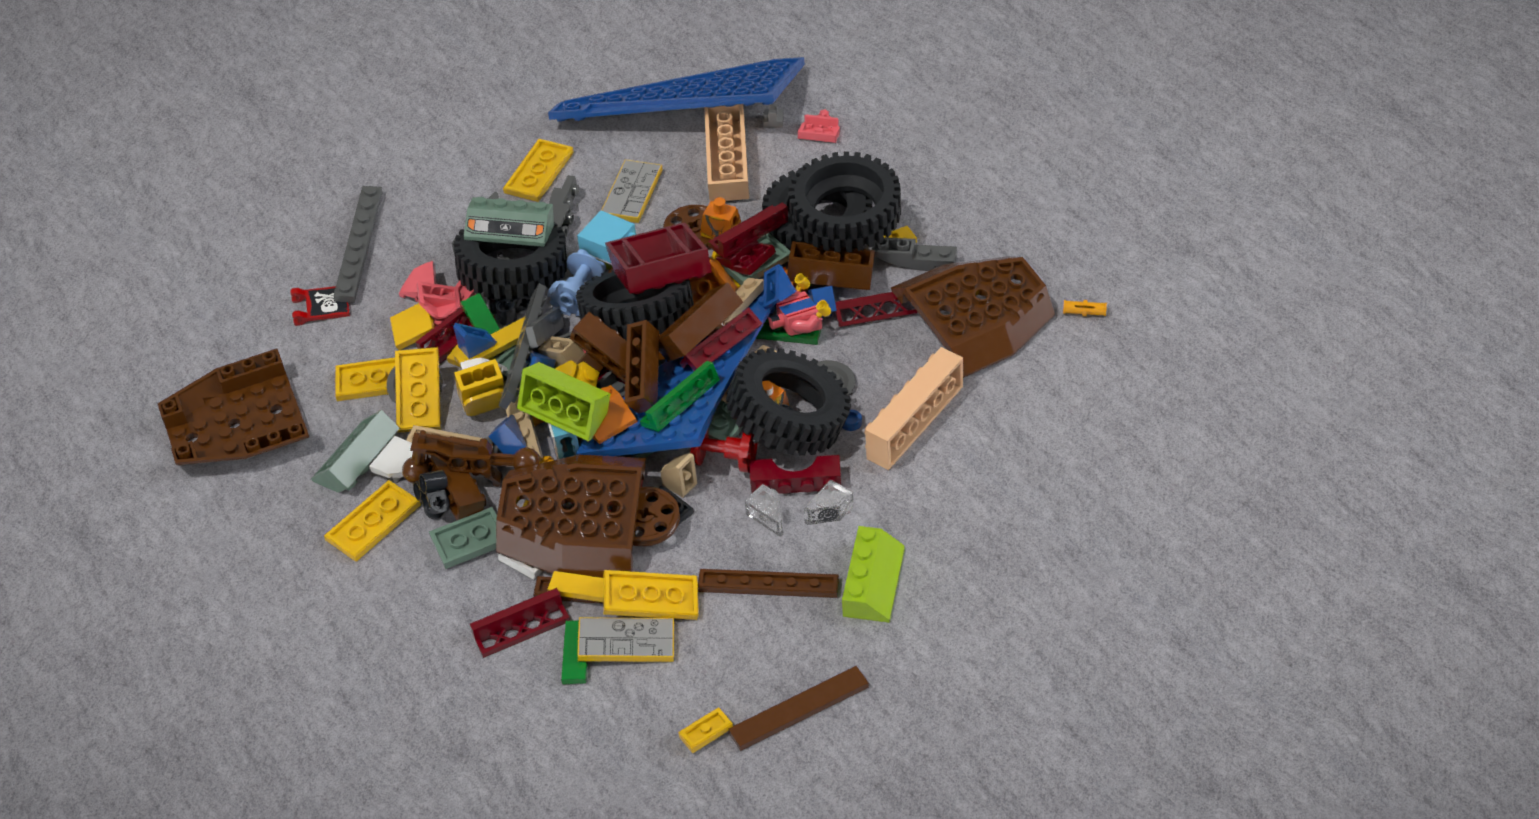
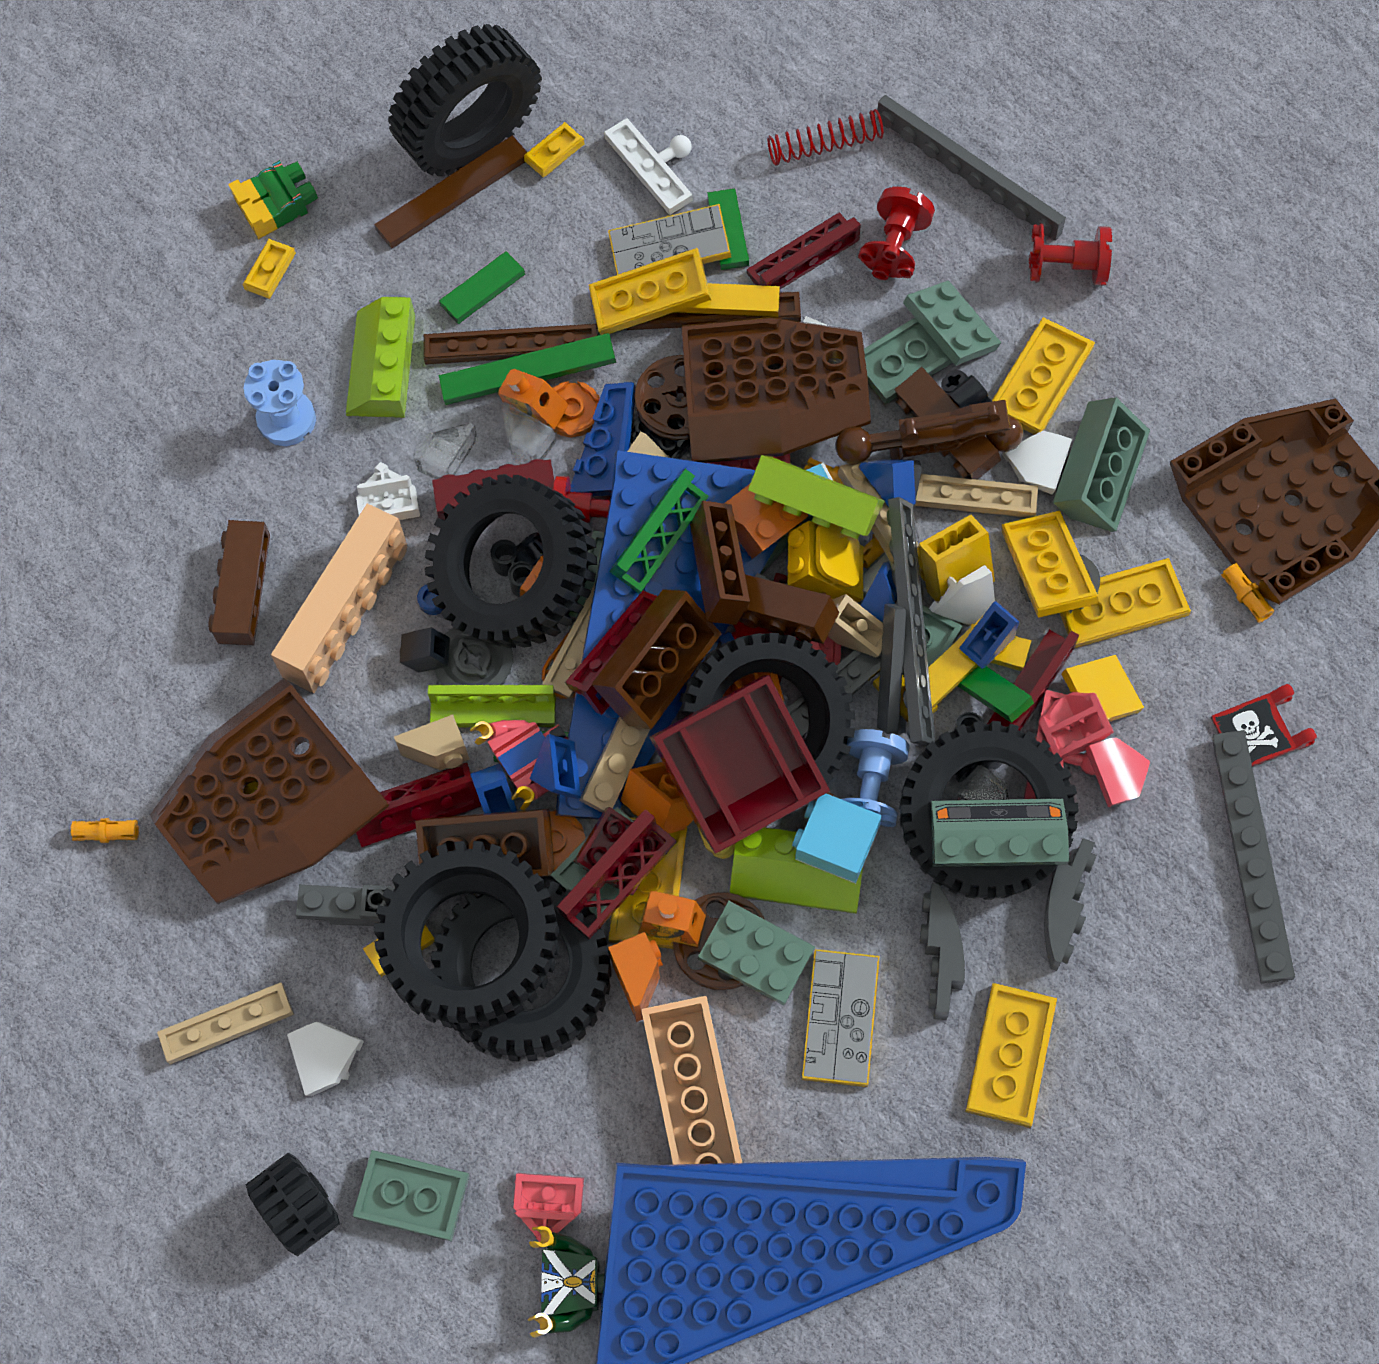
camera: 170 degrees right, 20 degrees up
(293, 372) = (1247, 593): none -> light orange pin
(297, 582) = (1081, 255): none -> red piece
(373, 679) = (974, 170): none -> dark grey plate
(424, 555) = (952, 322): none -> sand green plate
(432, 628) = (902, 216): none -> red piece
(466, 709) = (778, 157): none -> red piece
(627, 706) = (650, 165): none -> white plate
(669, 209) = (756, 953): none -> sand green plate
(708, 493) = (609, 433): none -> blue wing
(729, 532) = (581, 407): none -> orange tile
(746, 197) = (637, 969): none -> orange slope
(757, 556) = (544, 364): none -> green tile
(758, 522) = (524, 393): none -> orange torso
(784, 627) = (482, 287): none -> green tile
(786, 736) = (447, 78): none -> black tyre
(813, 90) = (568, 1283): none -> torso
(844, 353) = (493, 703): none -> lime fence
(859, 330) = (434, 744): none -> tan slope
(859, 379) = (424, 650): none -> black brick
(878, 484) = (389, 493): none -> white slope
(897, 132) = (411, 1195): none -> sand green plate
(945, 192) = (322, 1055): none -> white slope
(952, 542) = (282, 409): none -> light blue piece
(954, 712) = (272, 198): none -> green hips
(960, 656) = (269, 268): none -> yellow plate
(963, 118) = (292, 1204): none -> black wheel
(988, 430) = (240, 582): none -> reddish brown brick
(1004, 210) = (225, 1023): none -> tan plate

